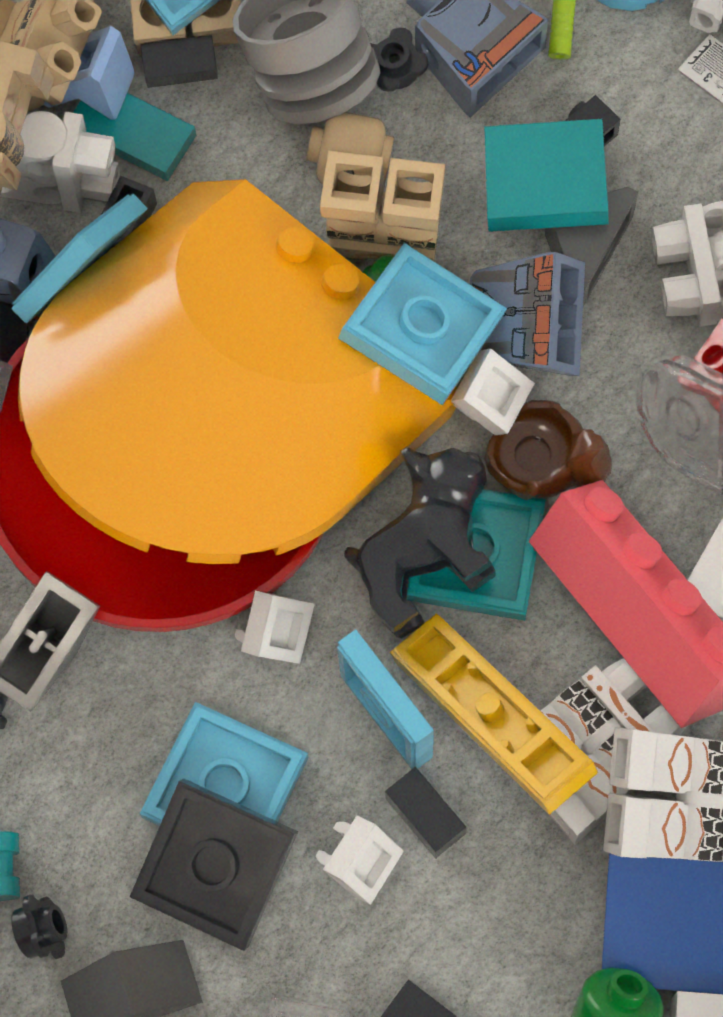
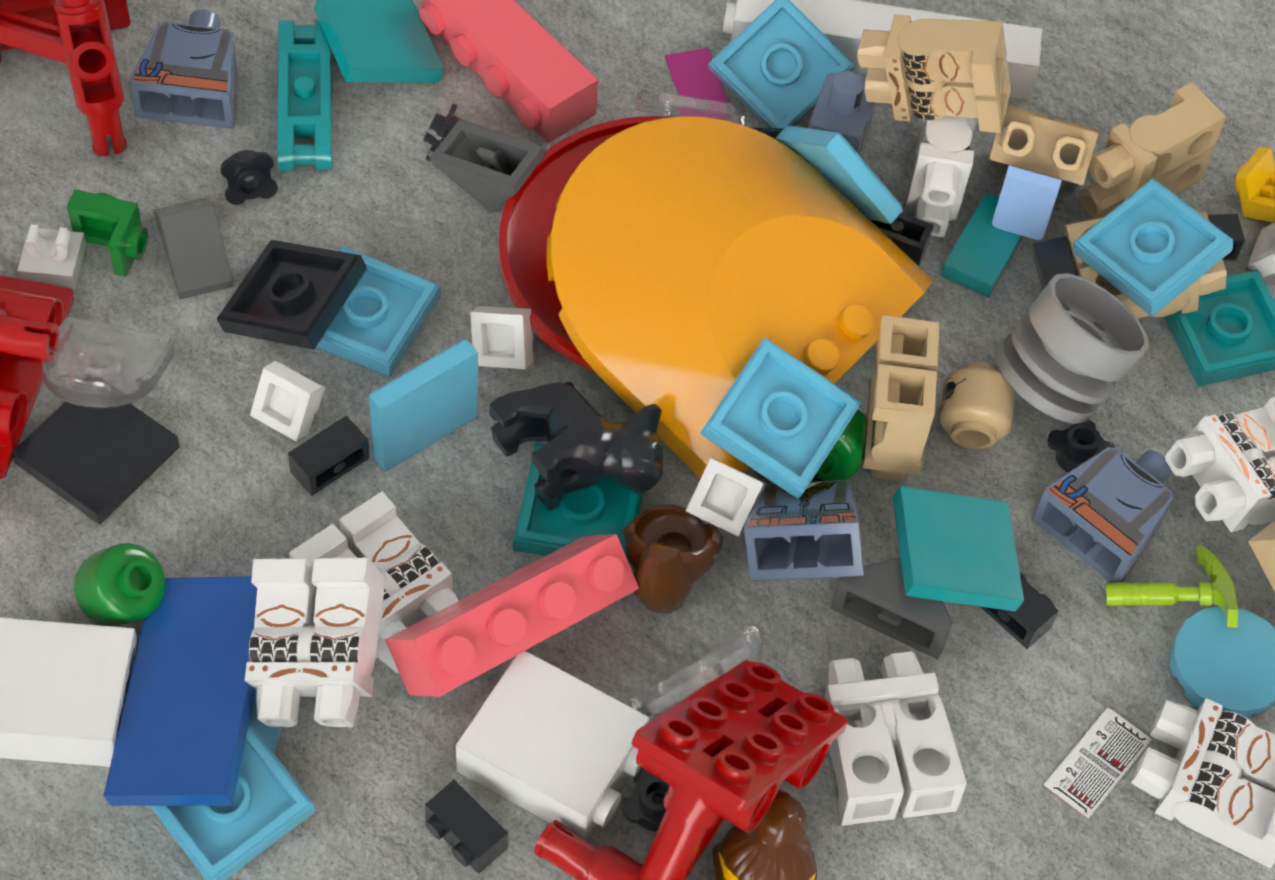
camera: 80 degrees right, 15 degrees down
(494, 713) = (406, 486): yellow plate -> none

